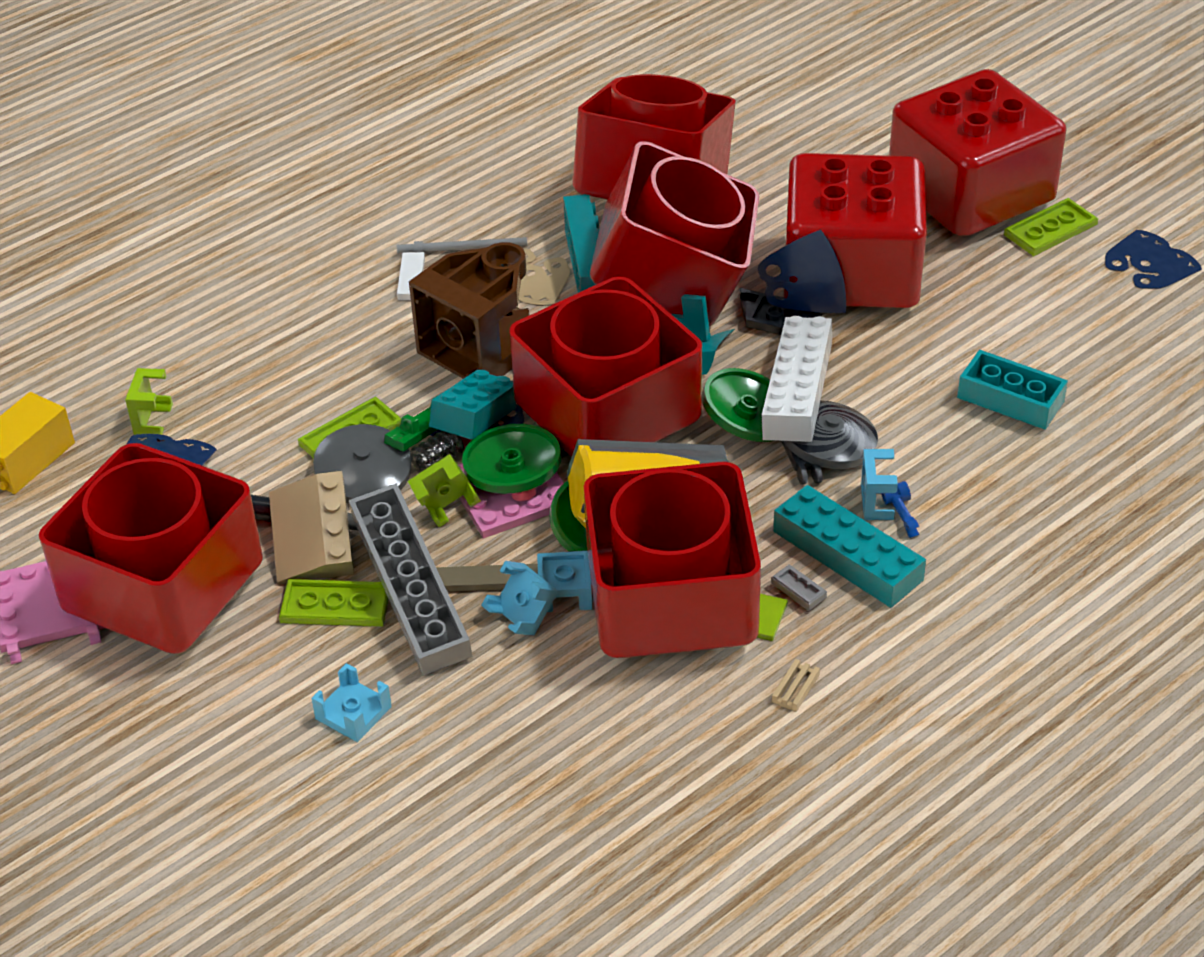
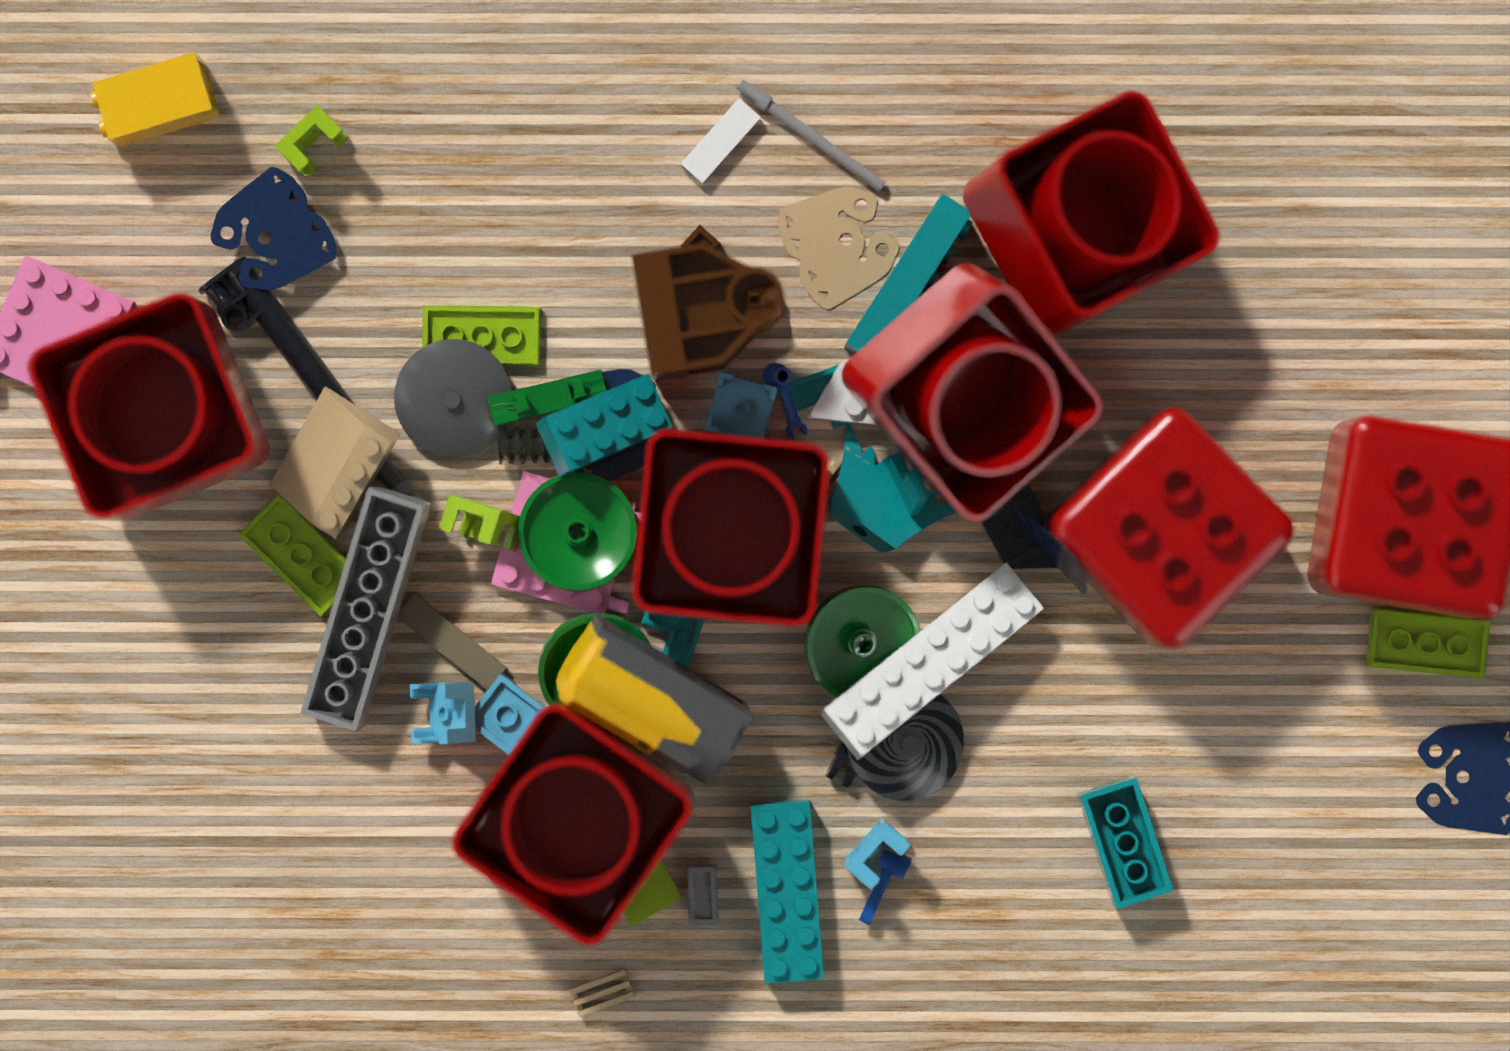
camera: 40 degrees right, 45 degrees up
(352, 706) = (221, 696): medium azure panel -> none

